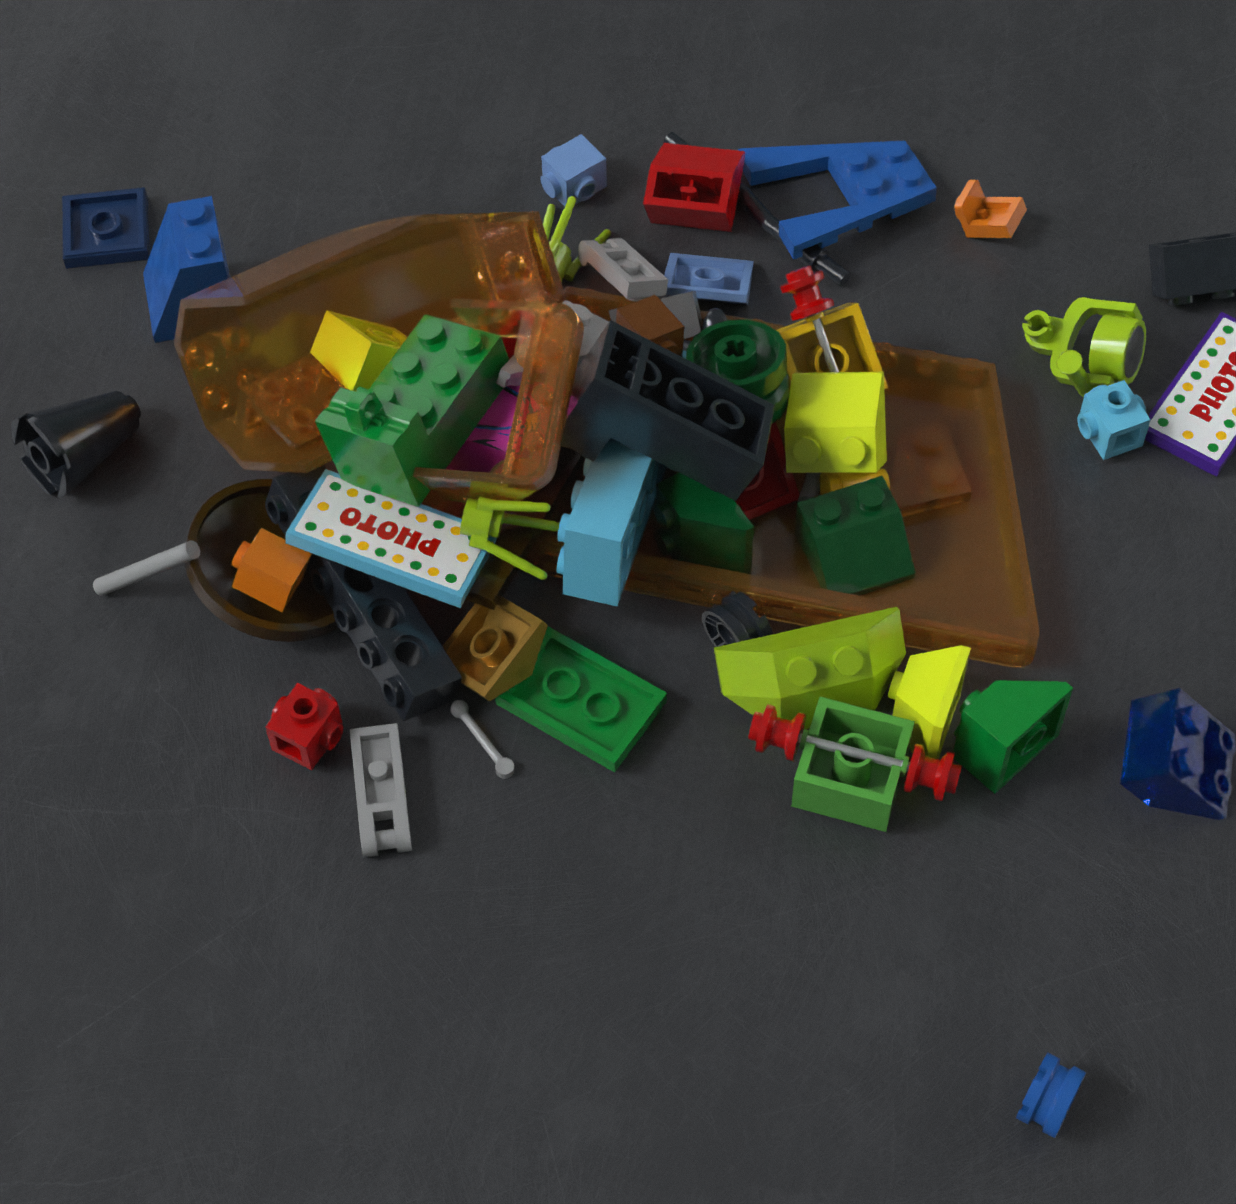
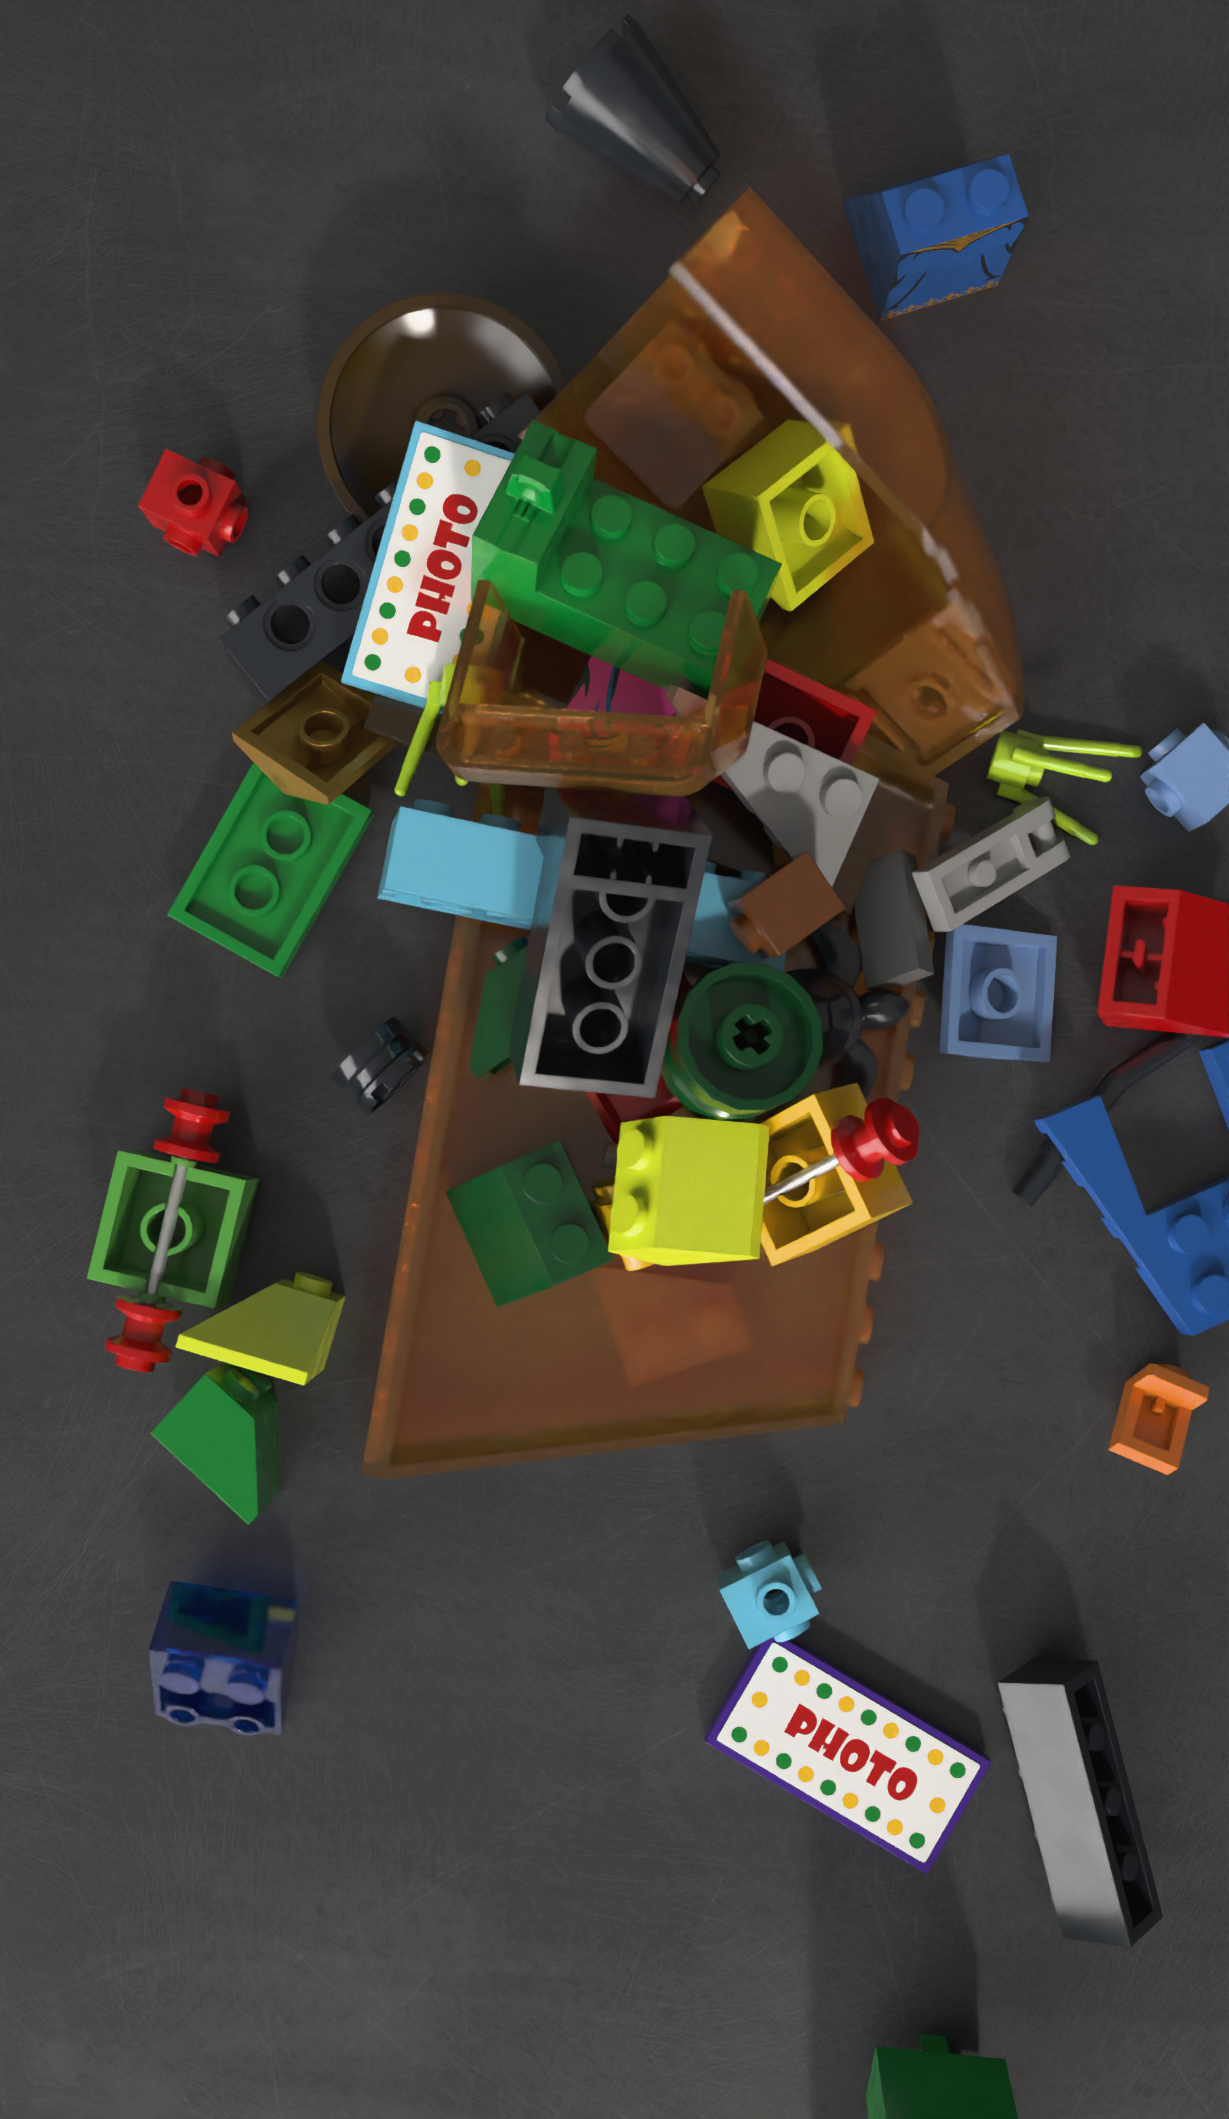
camera: 85 degrees right, 30 degrees up
(105, 227) = (1047, 91): dark blue tile -> none
(146, 568) = (408, 252): light grey bar -> none
(269, 569) = (388, 410): orange brick -> none
(380, 788) = (123, 616): light grey plate -> none
(503, 766) = (177, 774): light grey hinge -> none
(834, 660) = (317, 1173): lime wedge -> none
(1114, 349) = (888, 1599): lime piece -> none

